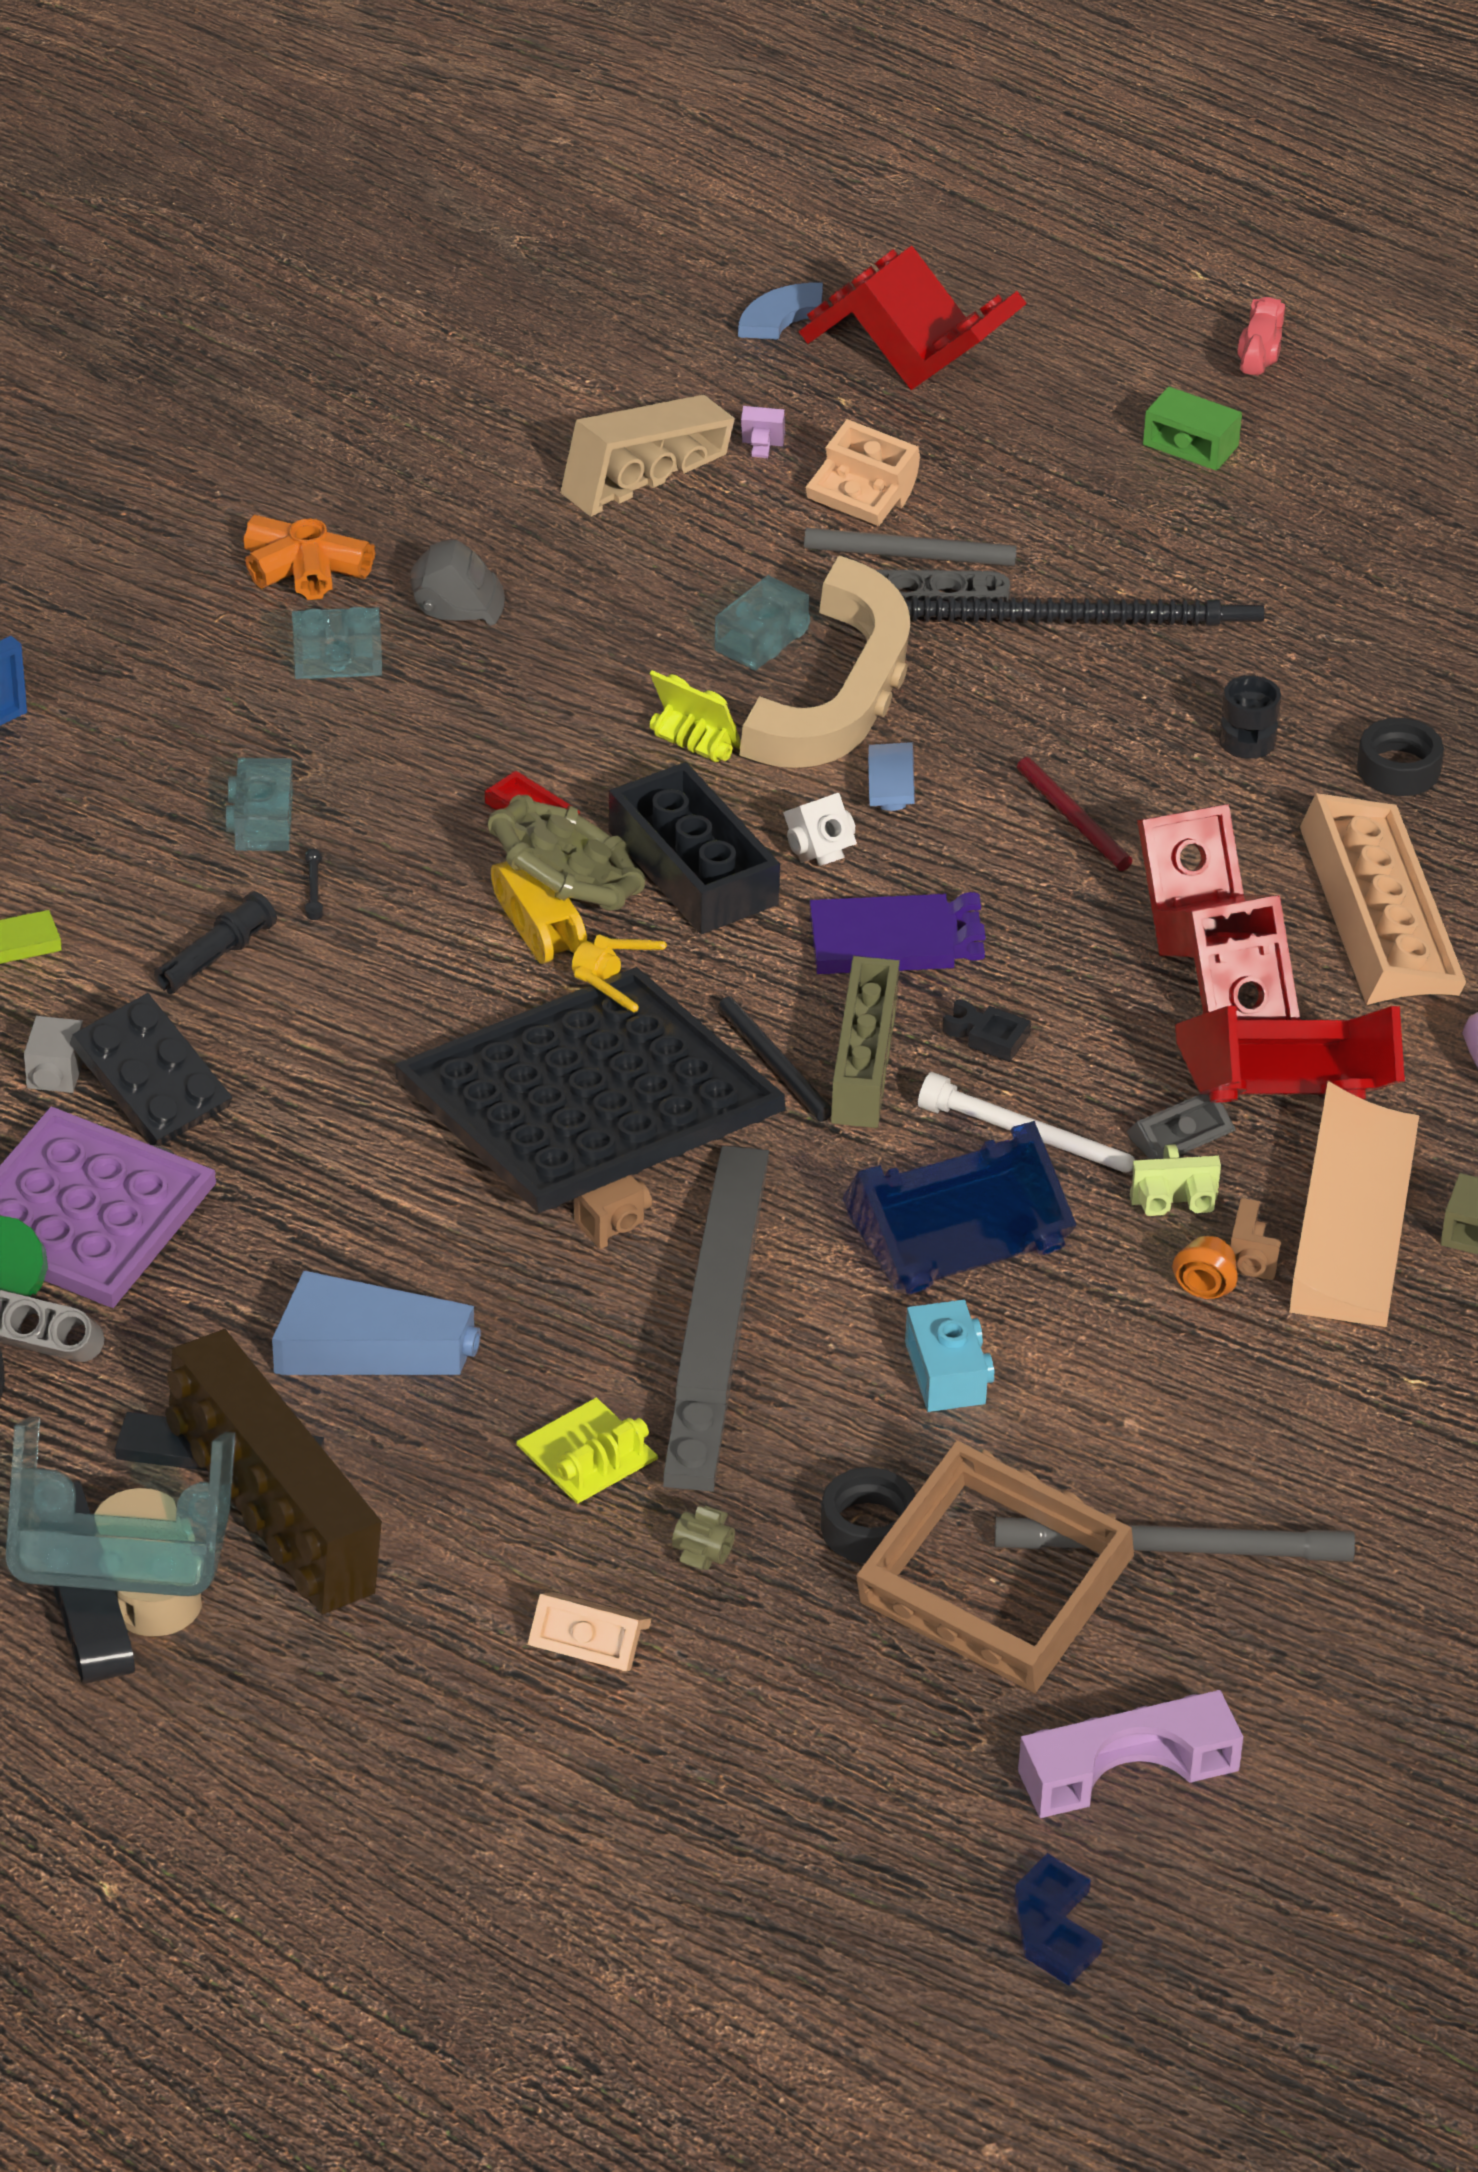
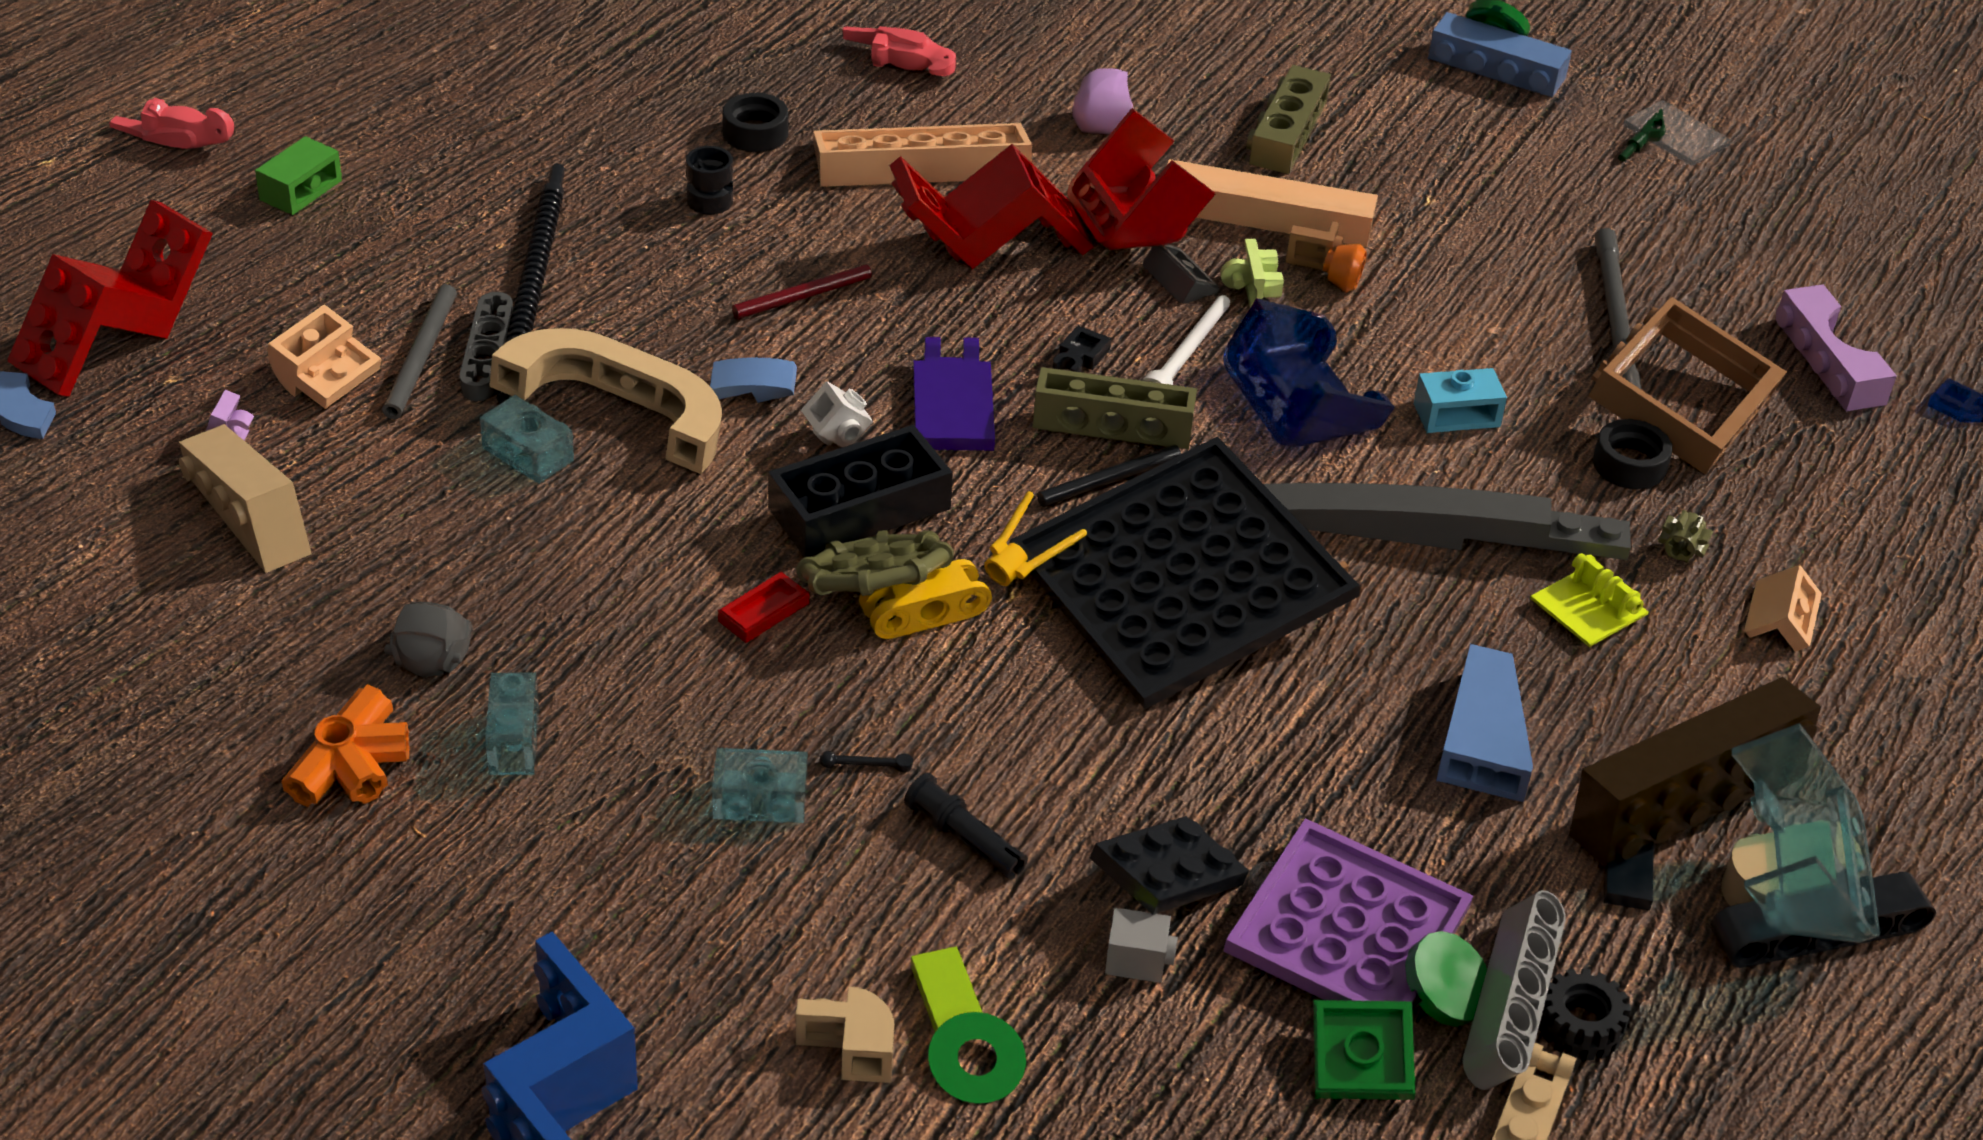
camera: 90 degrees left, 0 degrees up
(694, 718) = (674, 483): neon yellow hinge -> none

